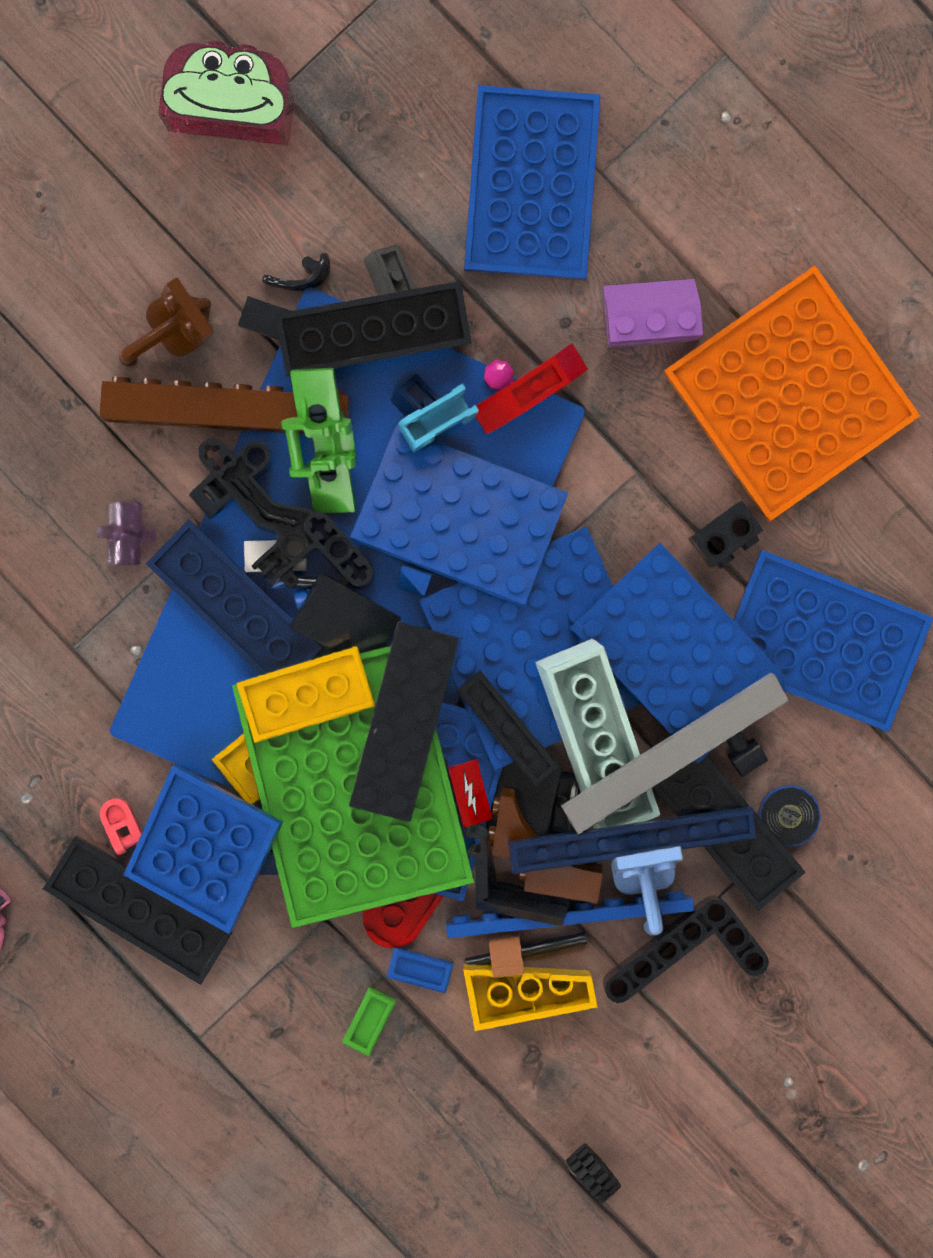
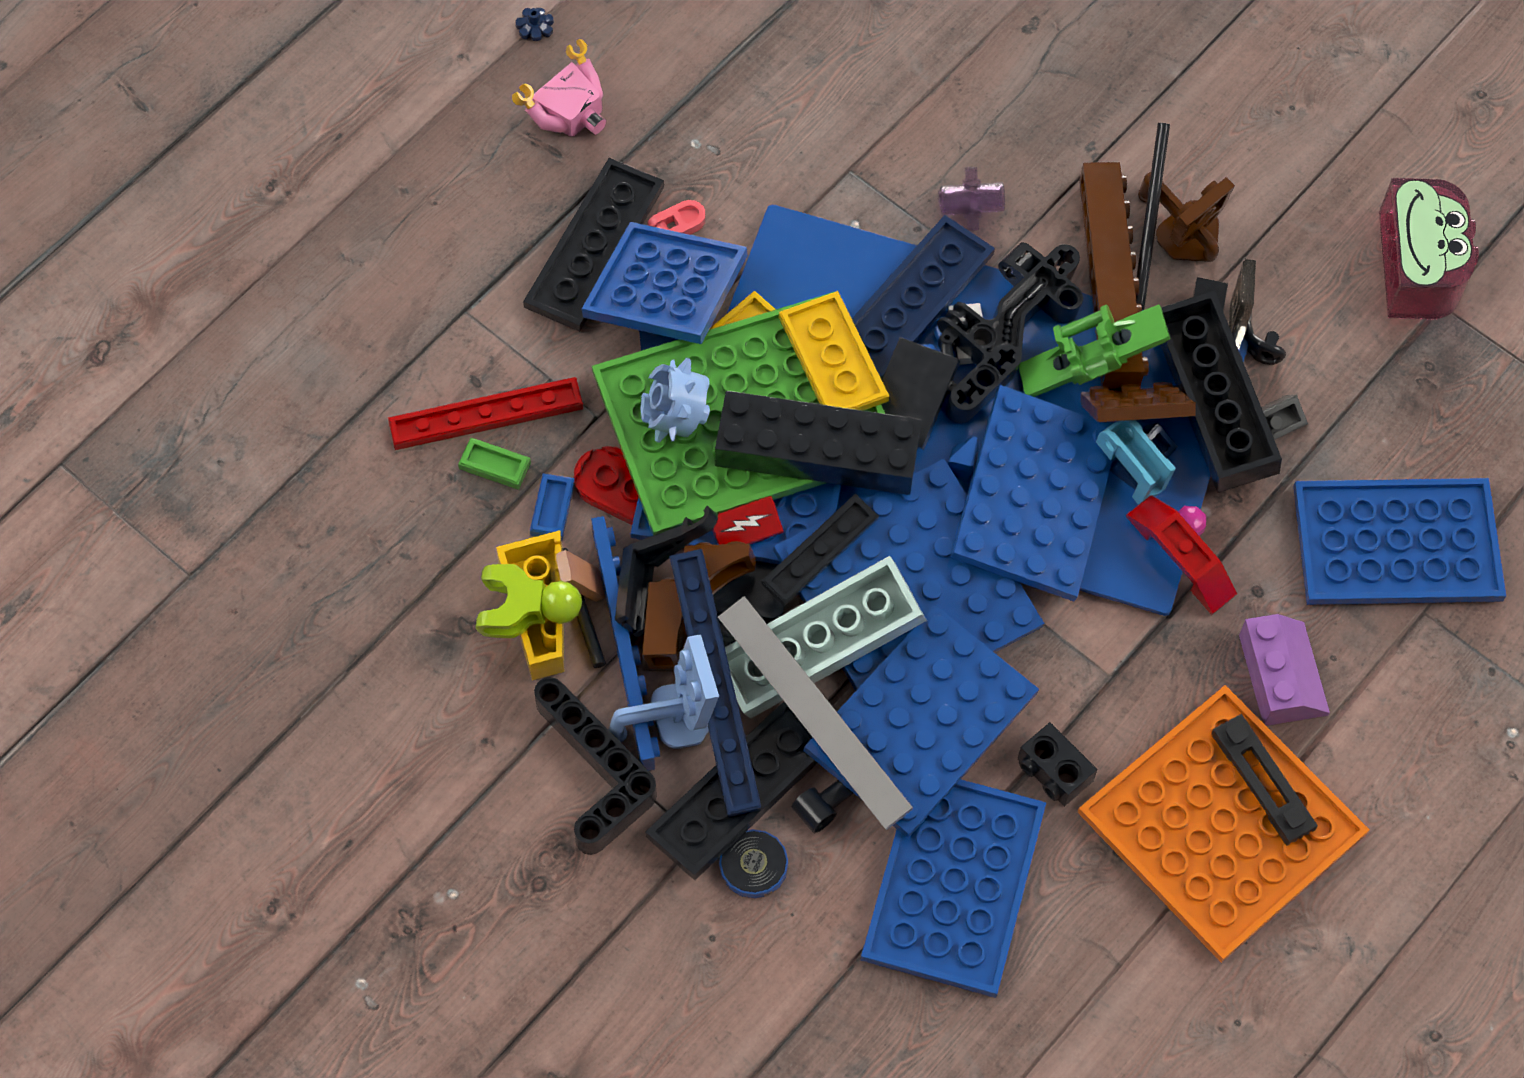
camera: 80 degrees right, 25 degrees down
(167, 359) = (1152, 211): none -> black piece
(277, 287) = (1242, 300): none -> clear smoke tile
(314, 1026) = (485, 413): none -> red tile
(353, 855) = (675, 400): none -> light blue brick
(385, 407) = (1137, 402): none -> reddish brown plate
(541, 1008) = (526, 602): none -> lime piece
(593, 1173) = (346, 684): black tyre -> none
(802, 333) = (1290, 820): none -> black container

